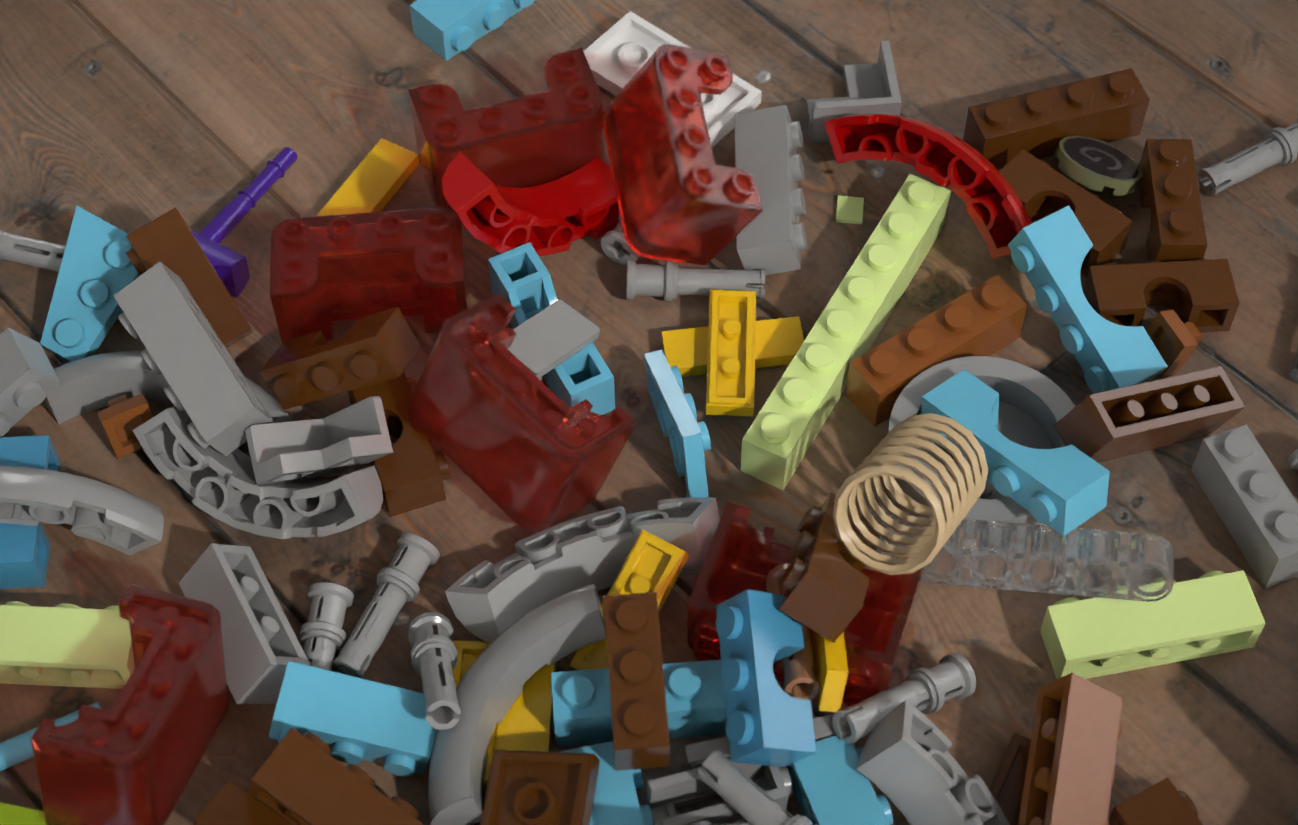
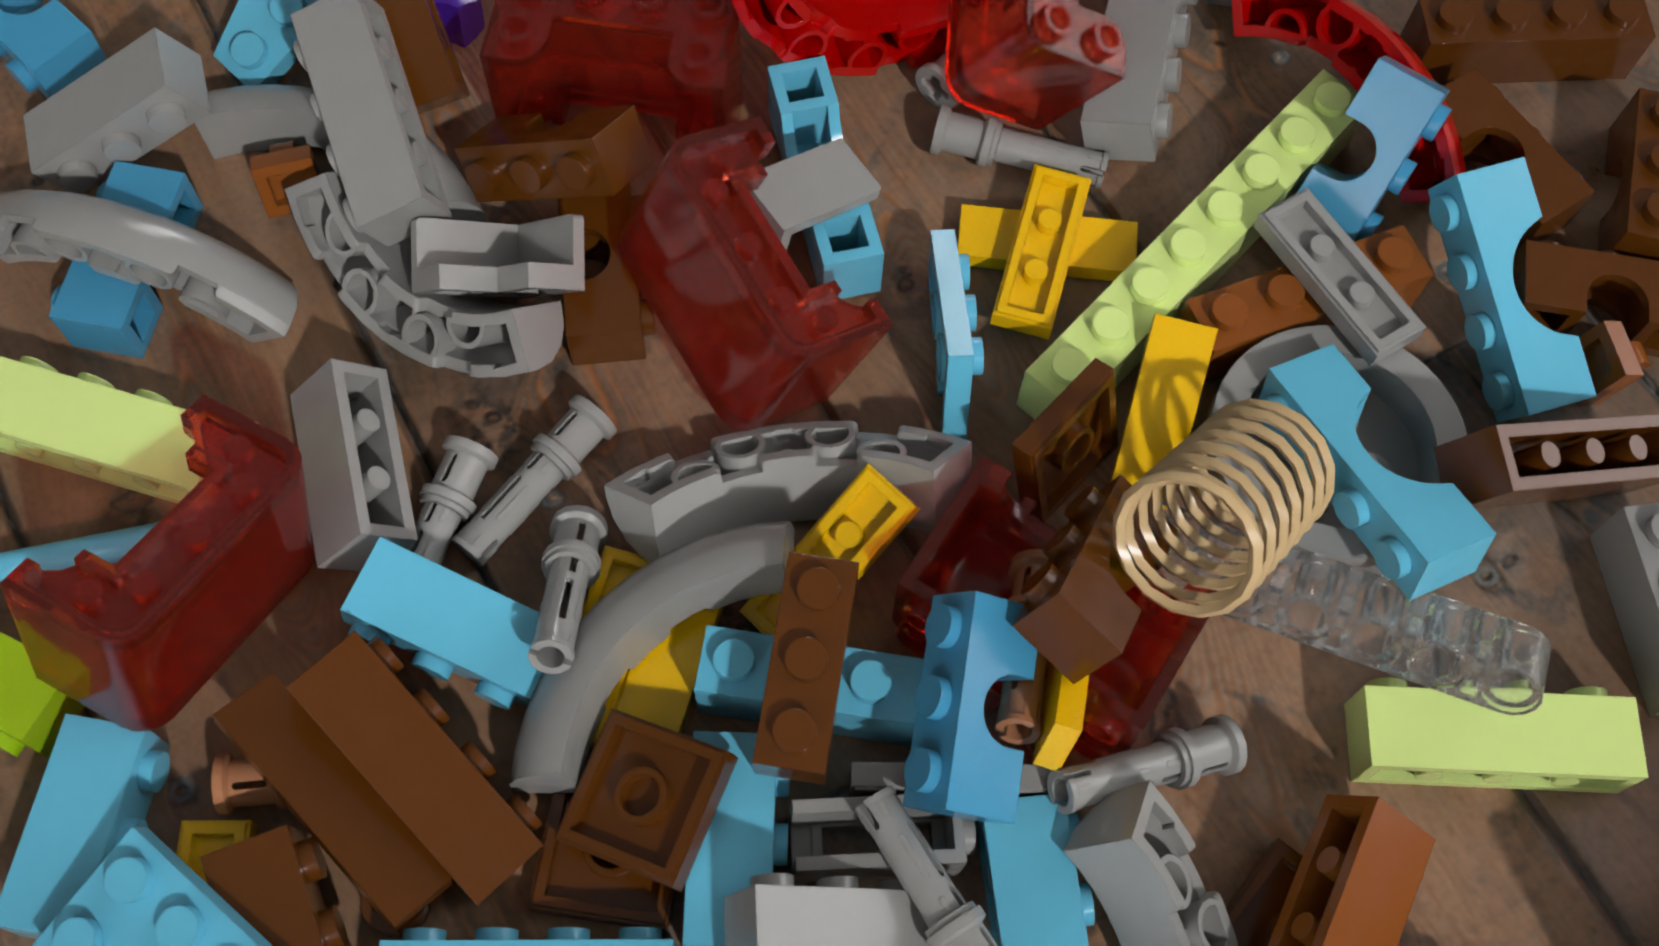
camera: 10 degrees right, 10 degrees up
(787, 481) = (1067, 440): none -> reddish brown tile
(849, 426) = (1164, 394): none -> yellow tile
(850, 209) = (1234, 98): yellowish green window -> none
(957, 320) = (1339, 277): none -> light grey tile
(971, 192) = (1398, 110): none -> dark azure arch
(1097, 165) = (1565, 108): tile -> none

